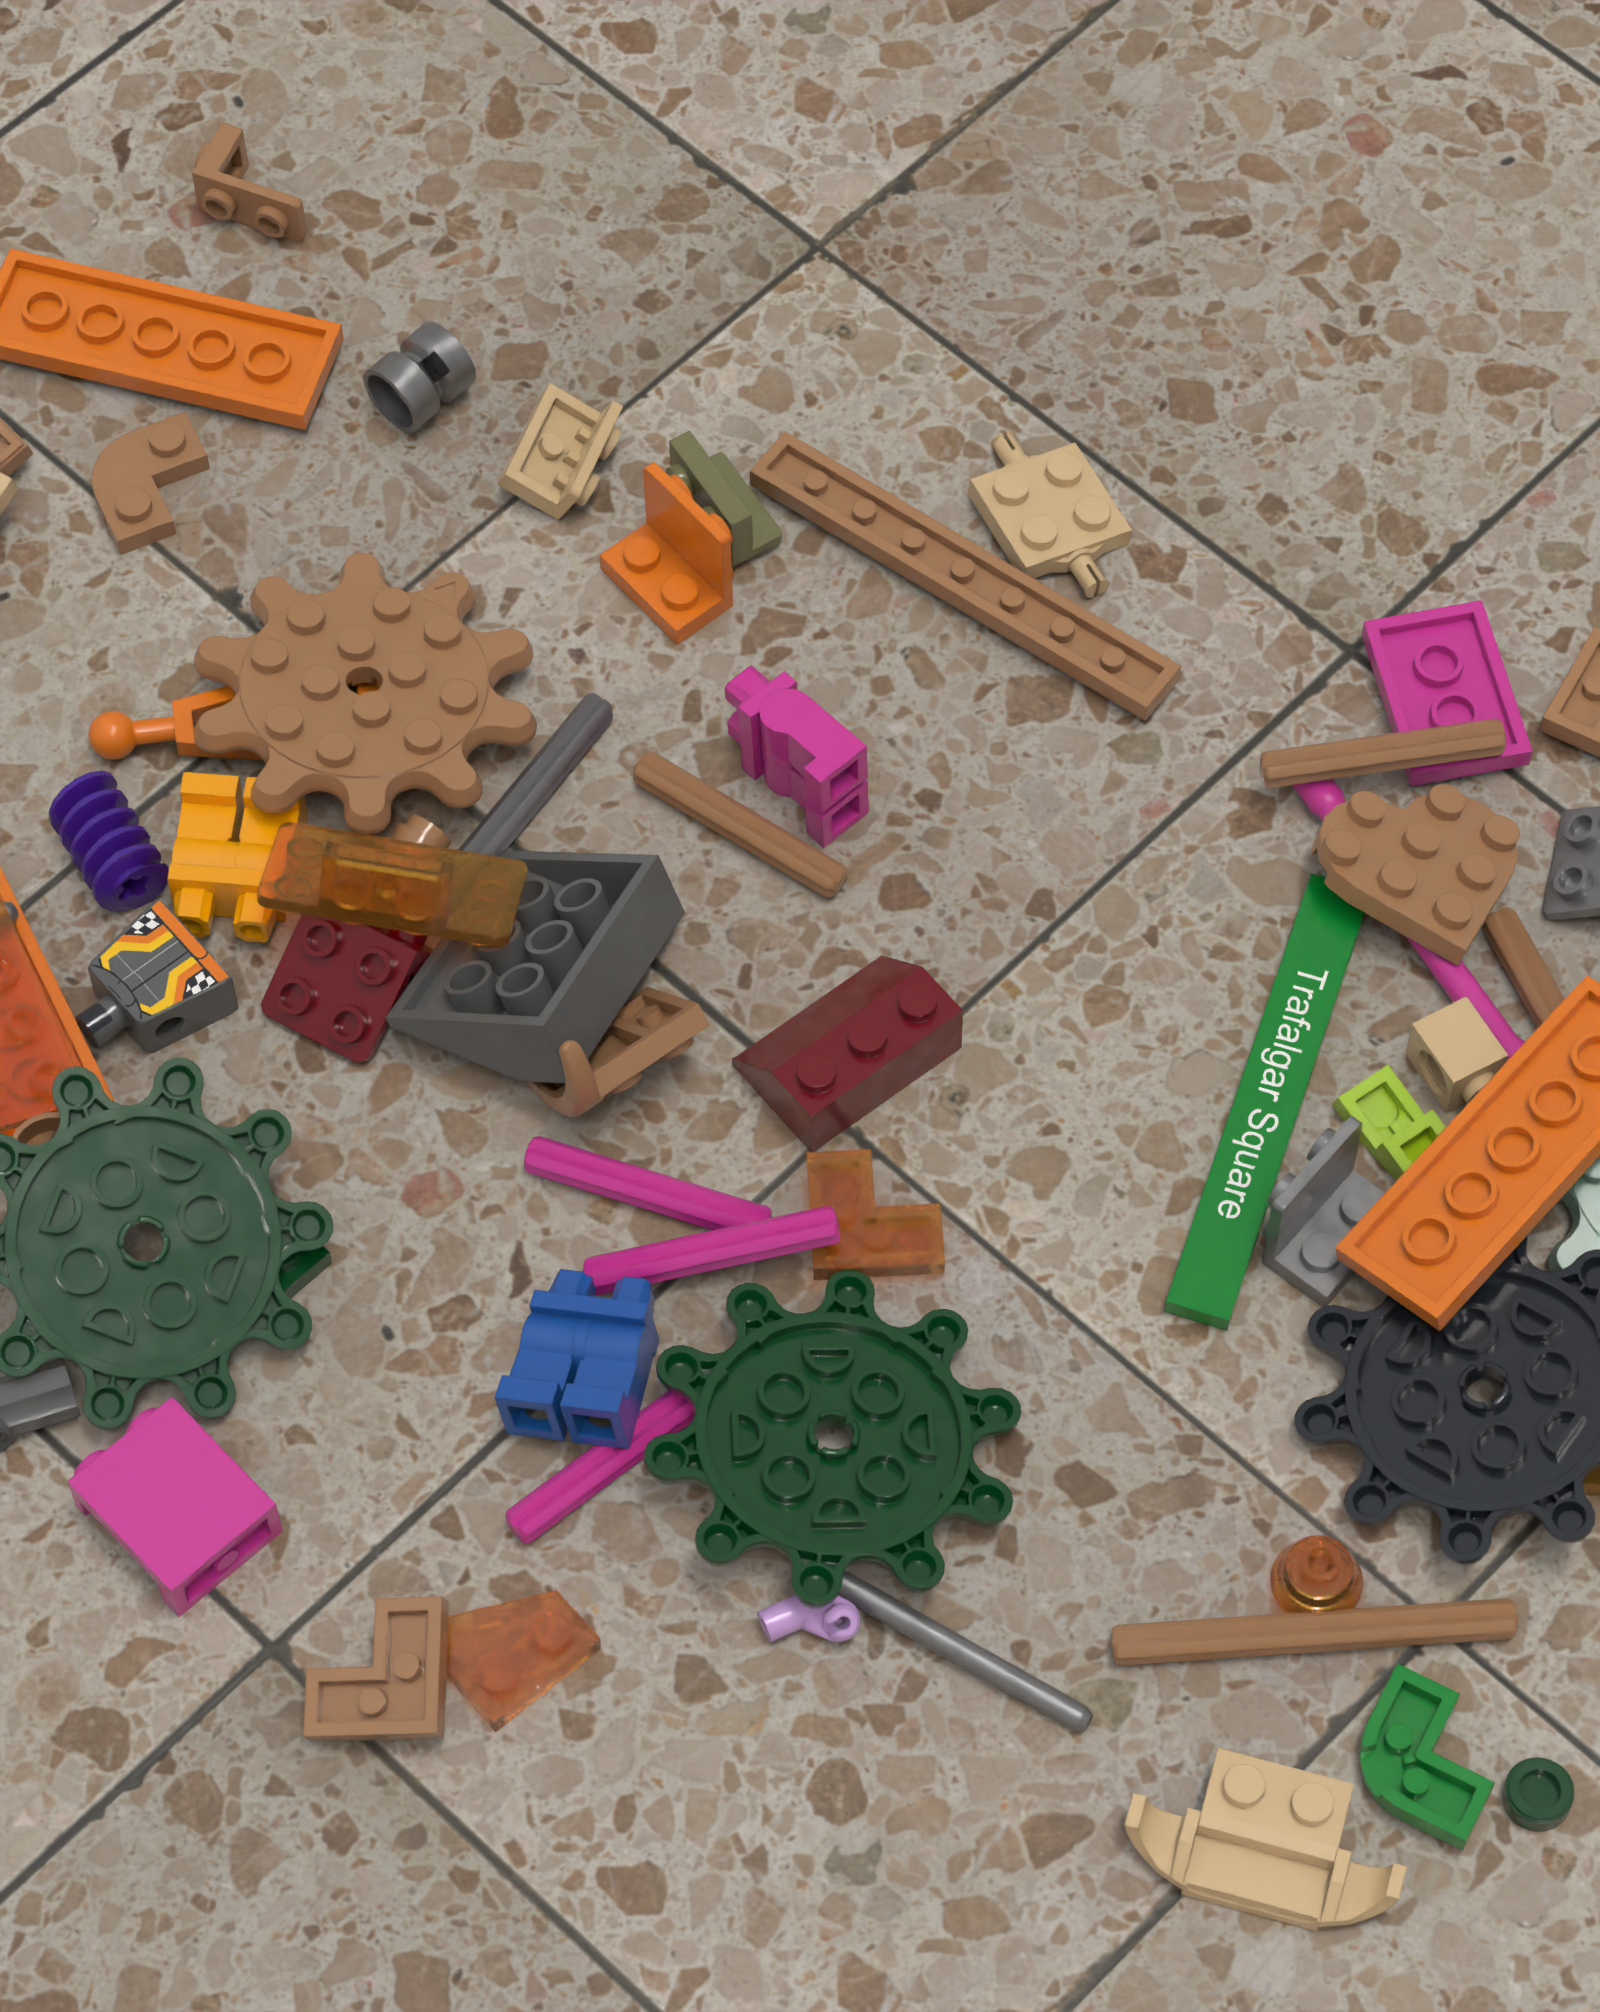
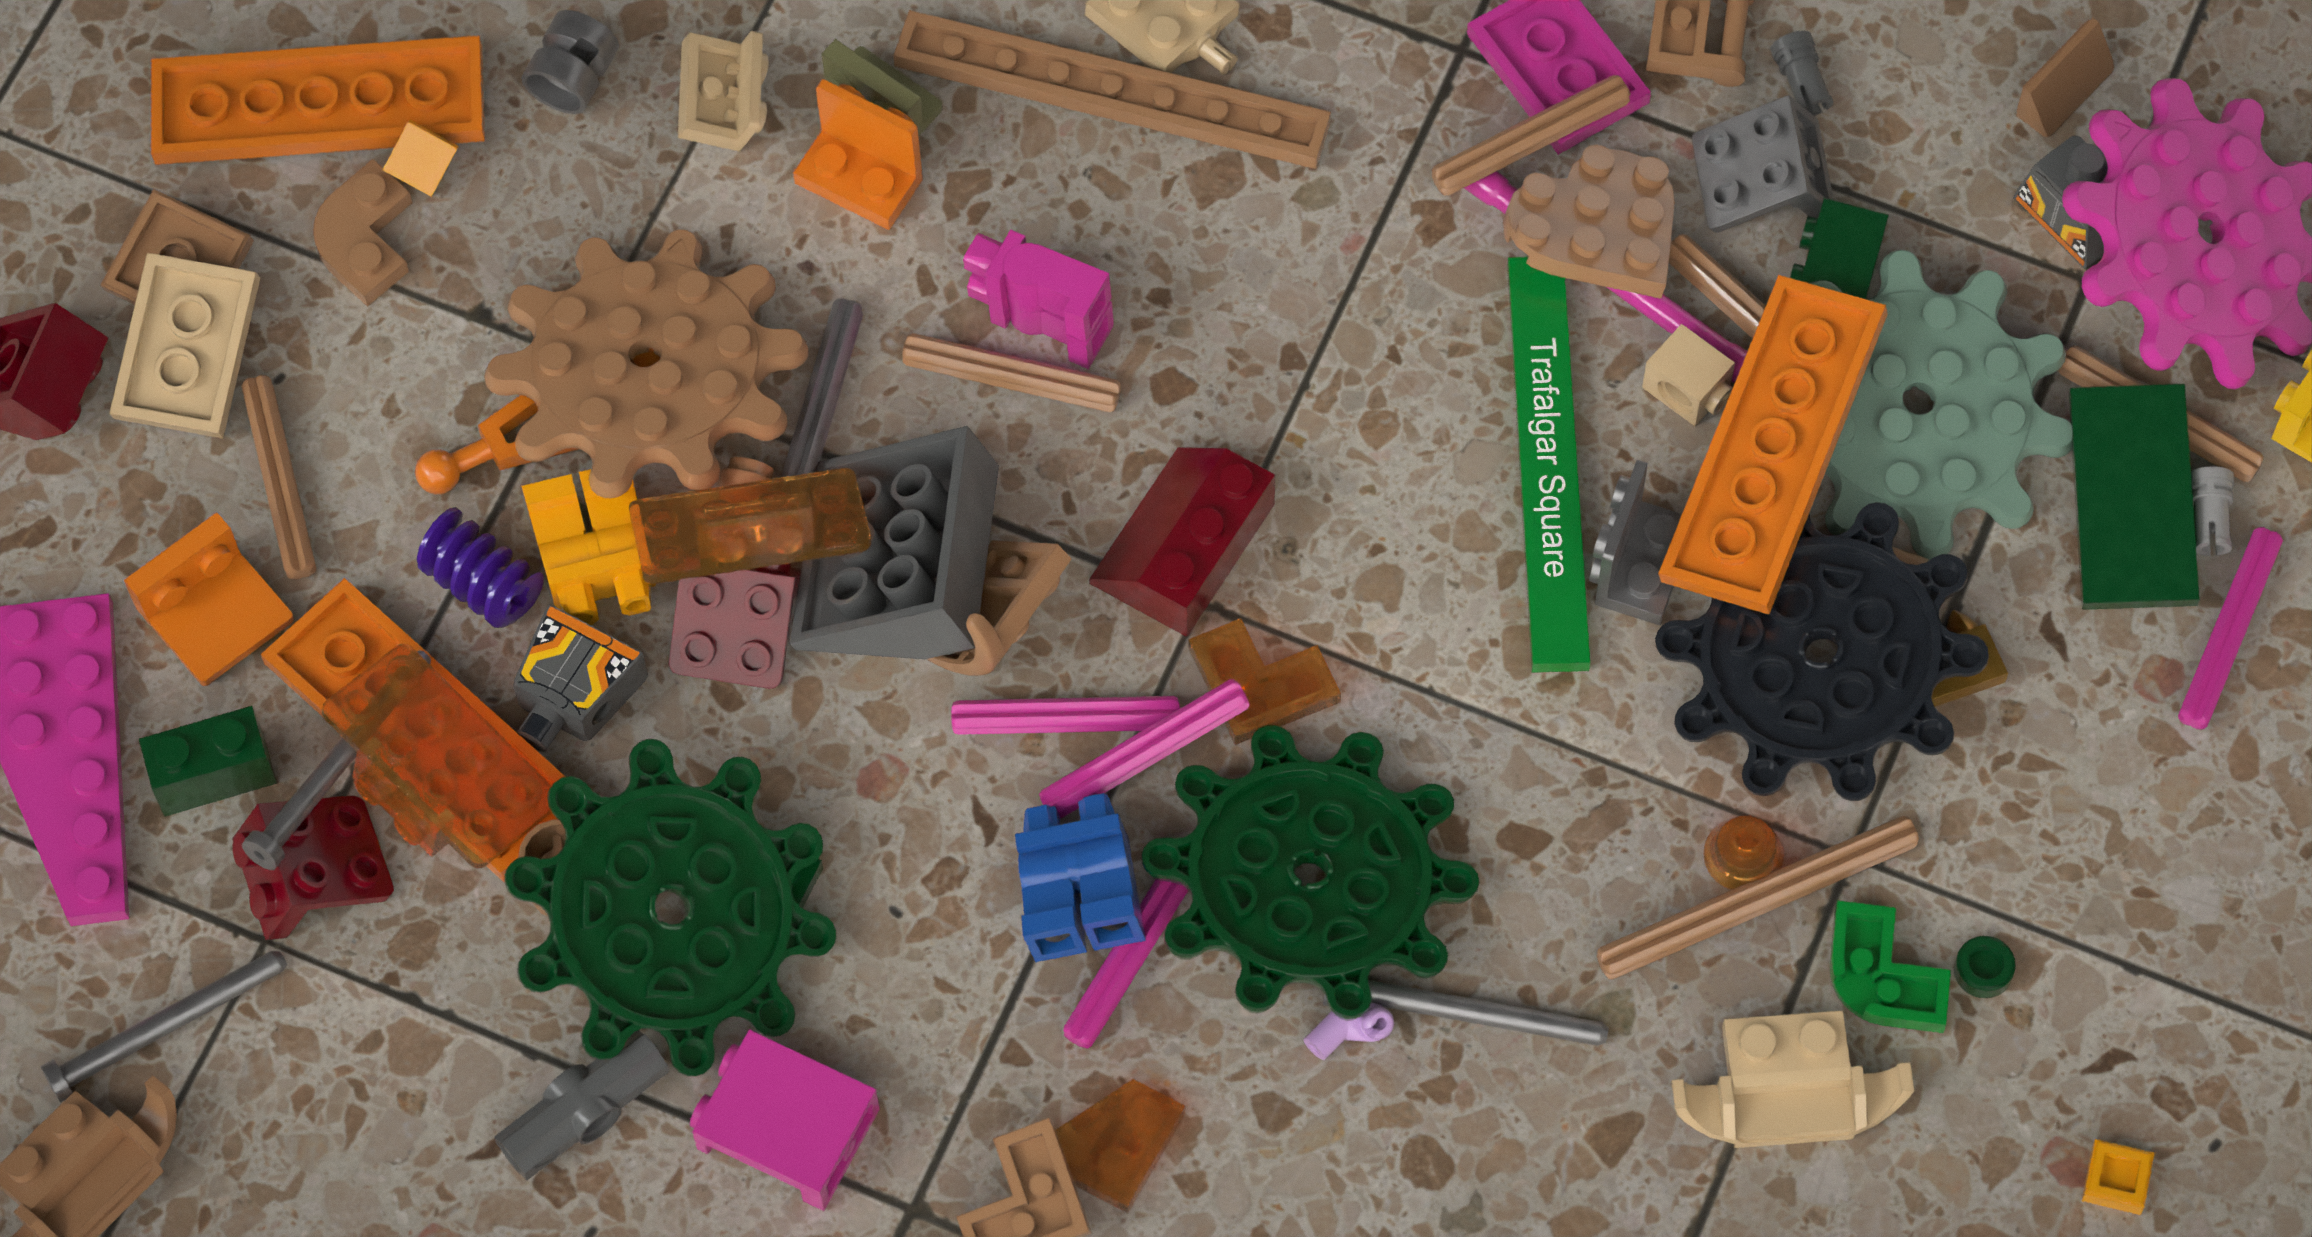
camera: 20 degrees left, 5 degrees up
(231, 424) = (420, 158): none -> light orange tile
(1392, 1121) = (1671, 457): lime slope -> none

